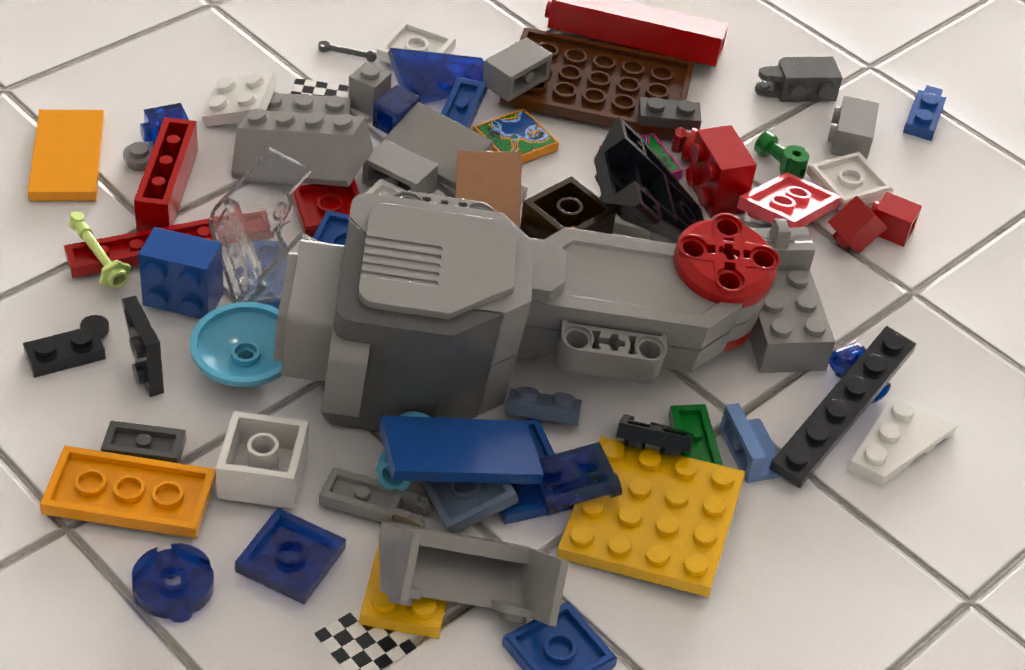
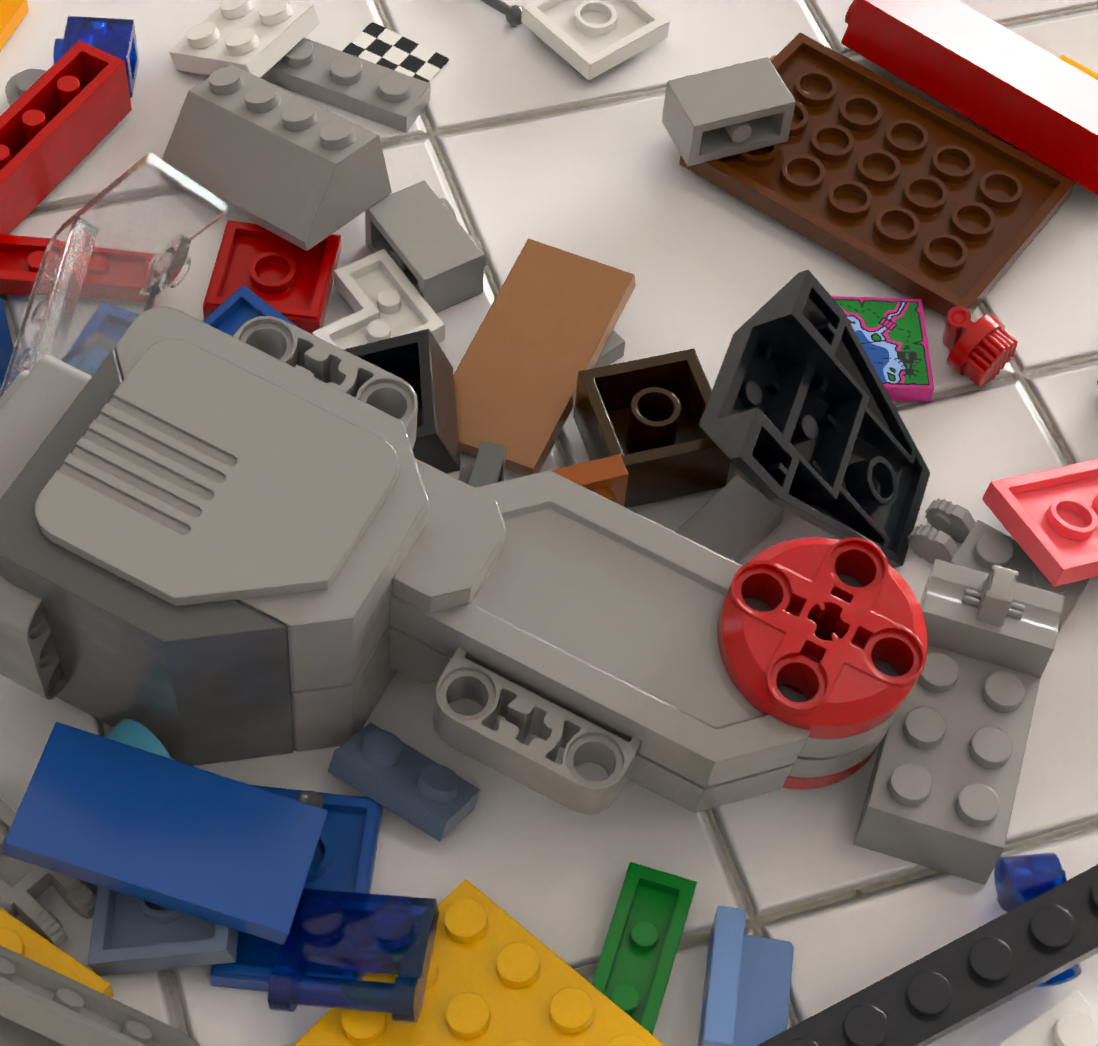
camera: 25 degrees right, 10 degrees up
(366, 86) = (465, 77): light grey brick -> none
(392, 107) = (489, 130): clear blue brick -> none
(432, 73) = (589, 81): clear blue wing -> none
(437, 139) = (516, 195): light grey tile -> none
(464, 101) = (594, 161): blue hinge -> none
(518, 133) = (671, 237): tile -> none
(669, 113) = (963, 272): dark grey plate -> none
(669, 439) = (555, 924): black wing -> none
(720, 170) = (986, 413): red brick -> none

